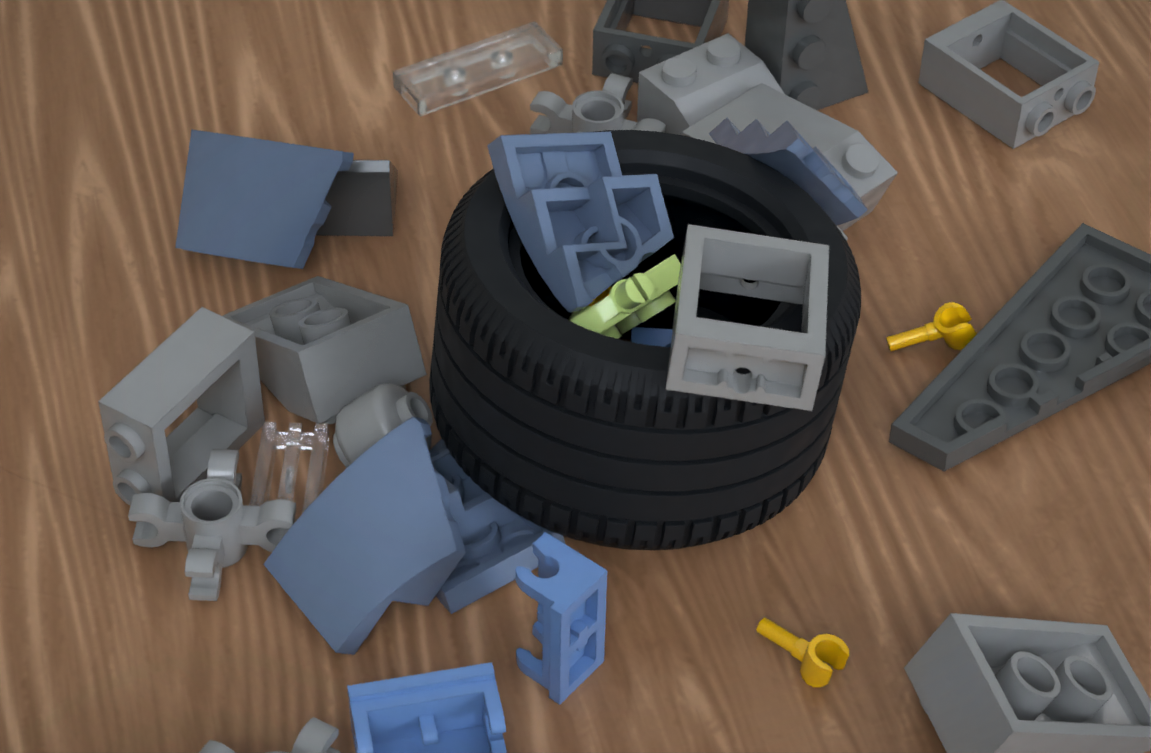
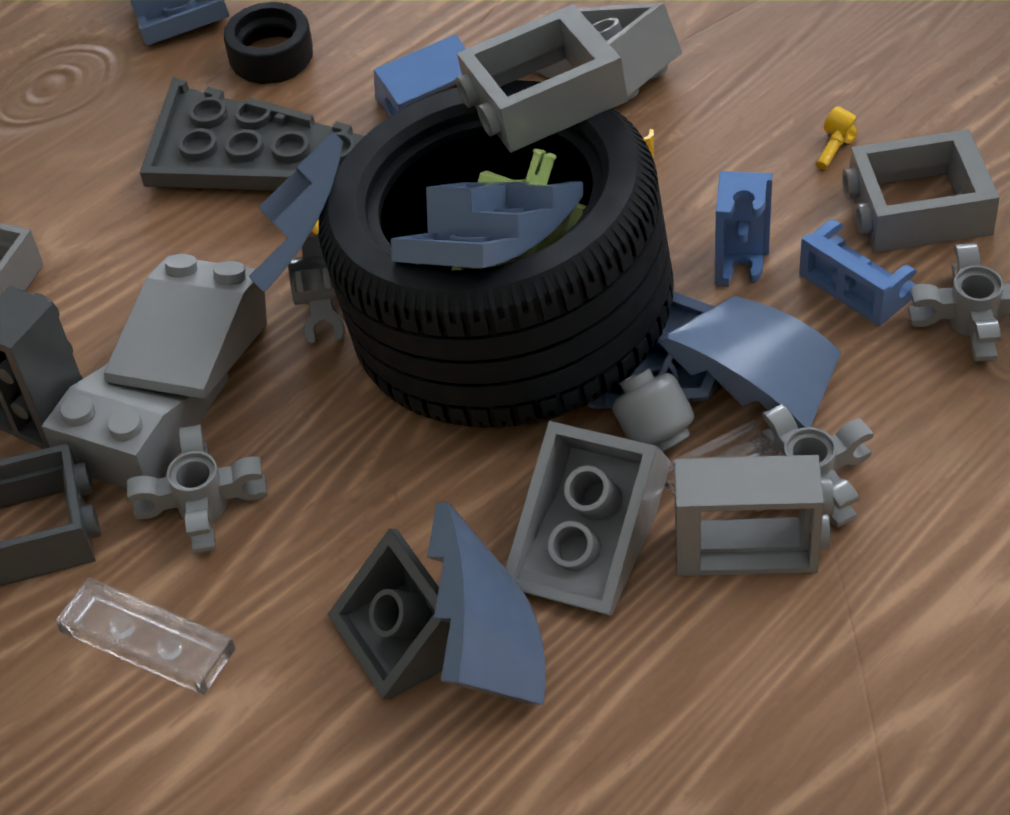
camera: 115 degrees left, 5 degrees up
(1088, 509) = (417, 75): none -> medium blue hinge

